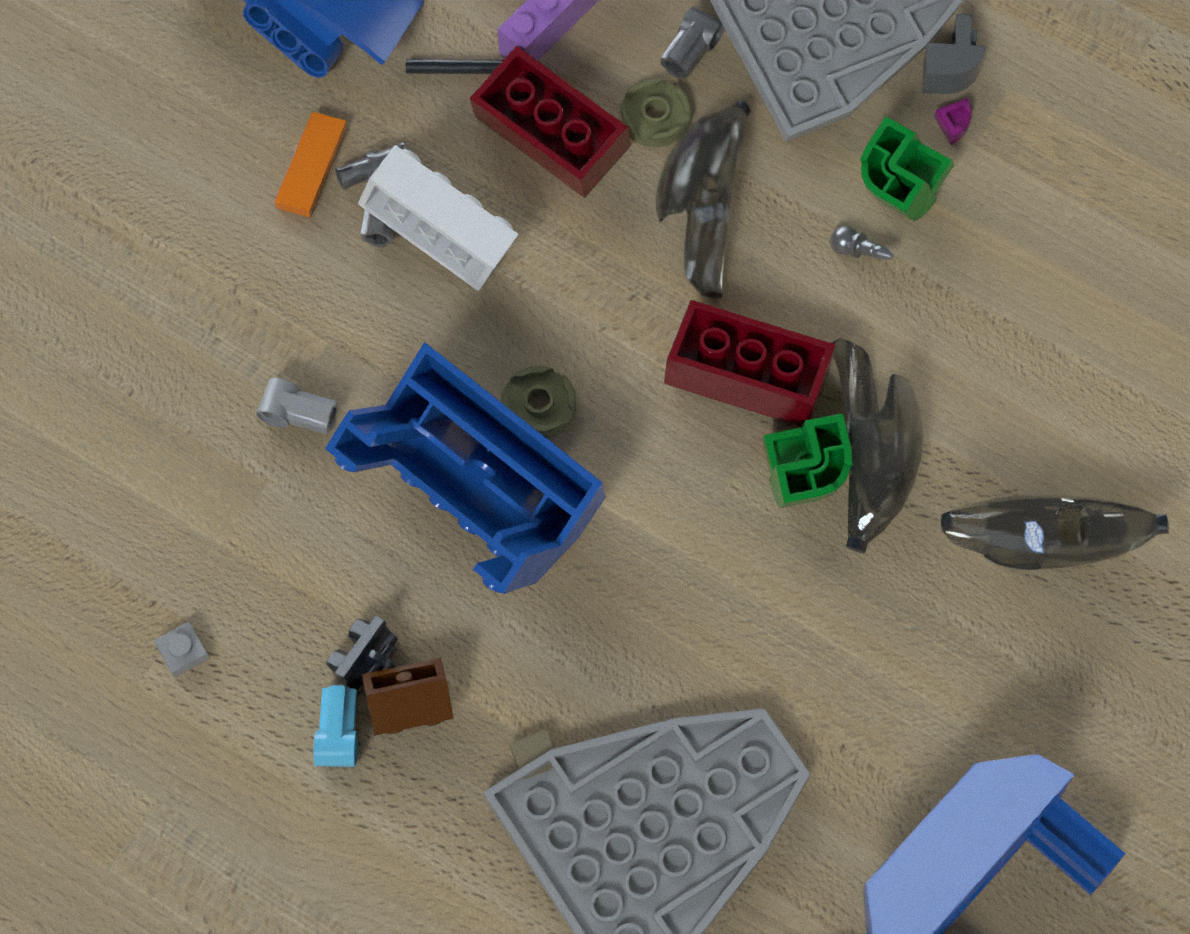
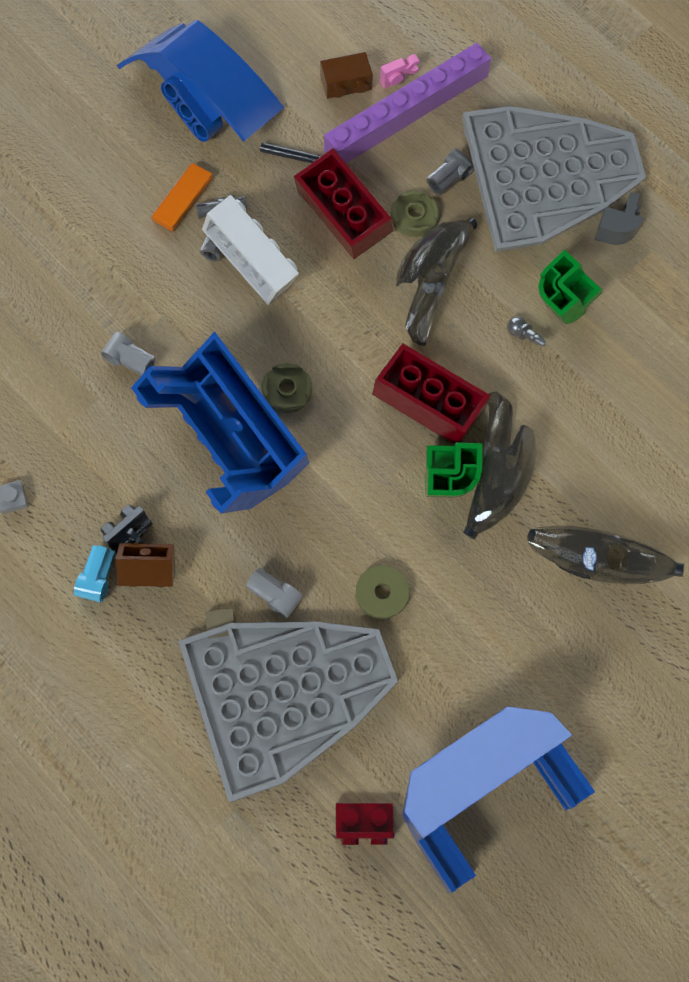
camera: 10 degrees right, 5 degrees up
(611, 697) = (279, 596): none -> light grey piece
(758, 635) = (387, 577): none -> olive tile
(954, 119) = (611, 262): magenta tile -> none

